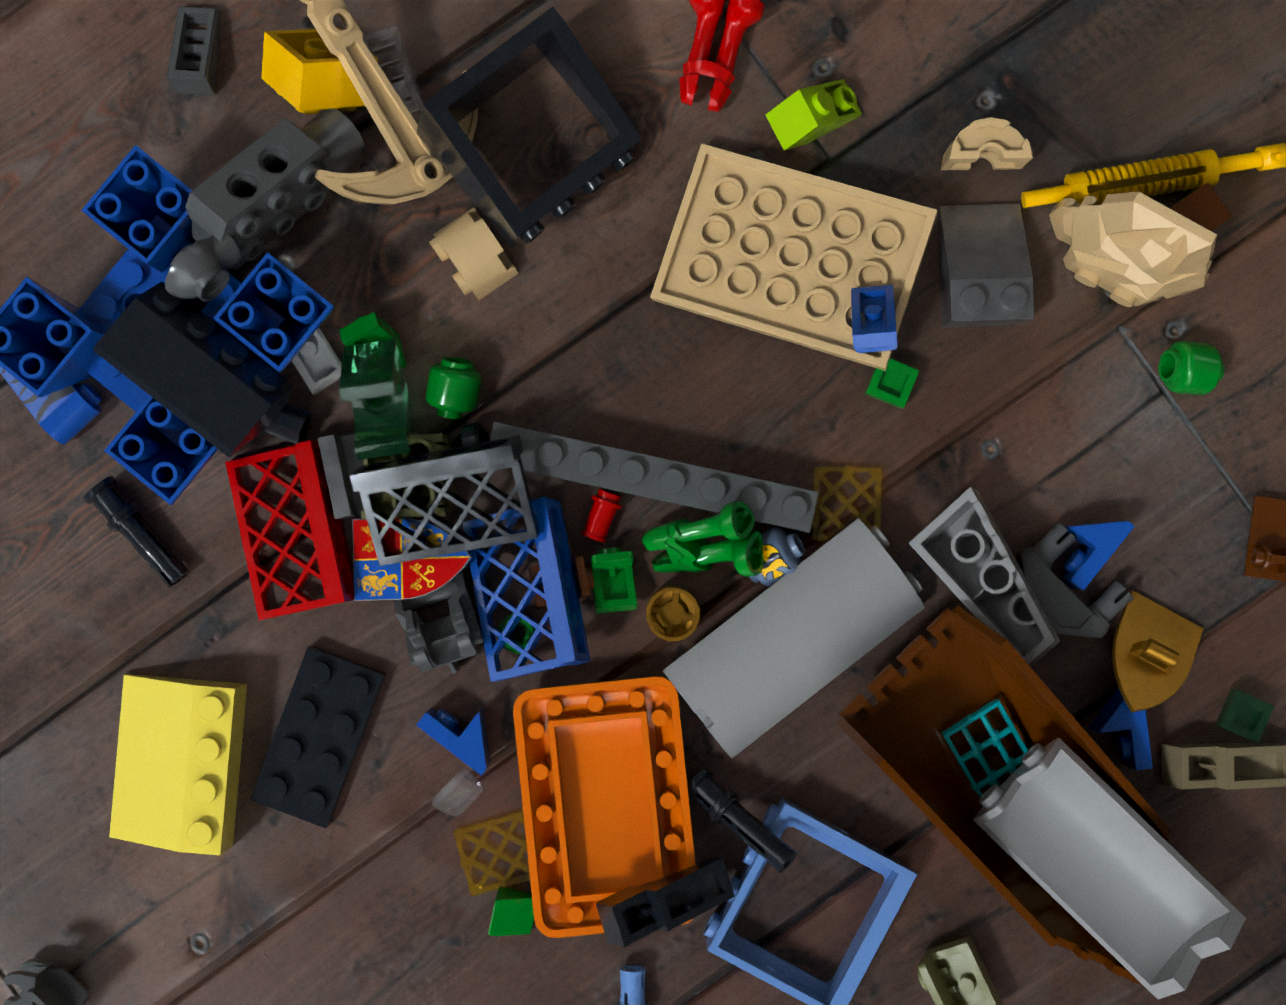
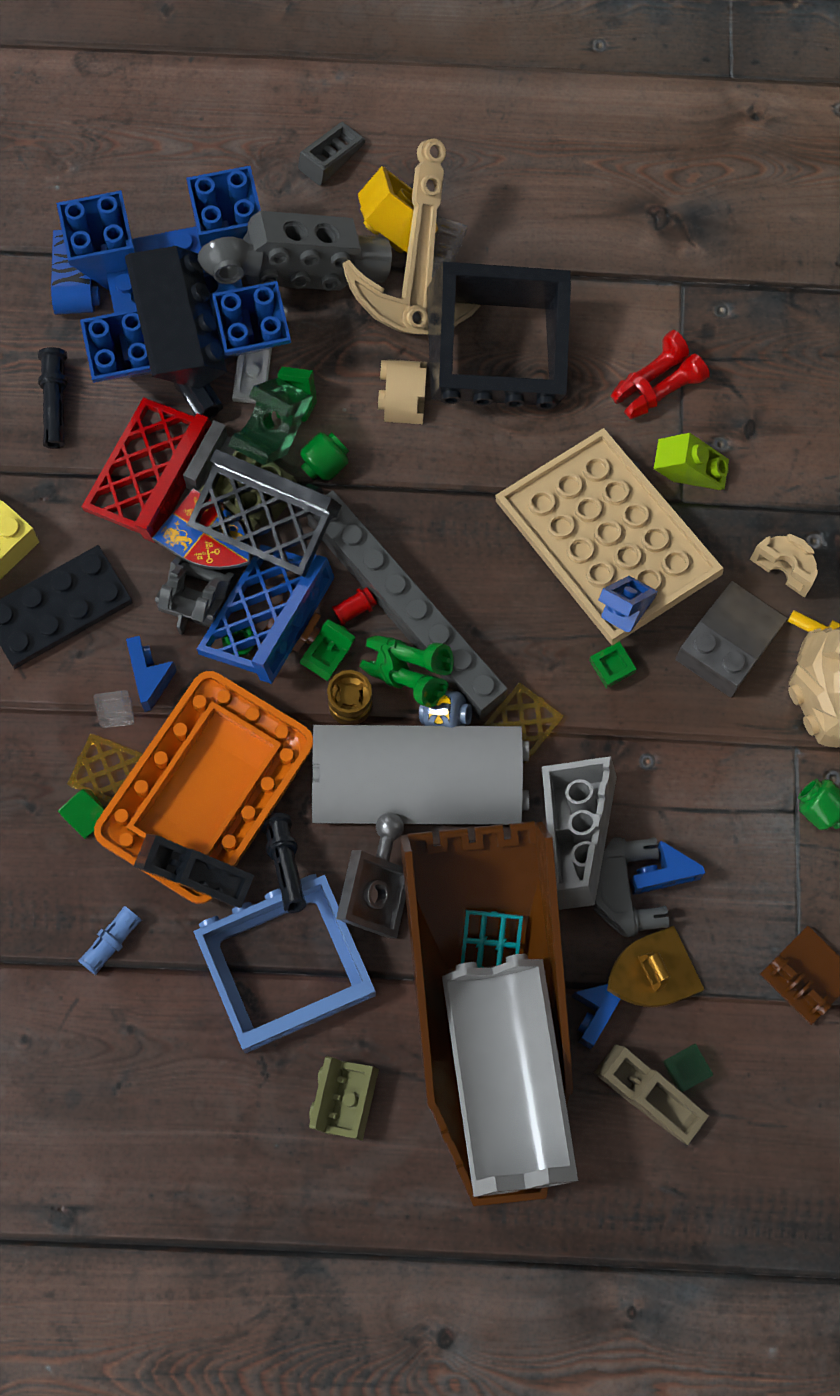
camera: 40 degrees right, 15 degrees down
(823, 771) = (375, 871): none -> flat silver plate

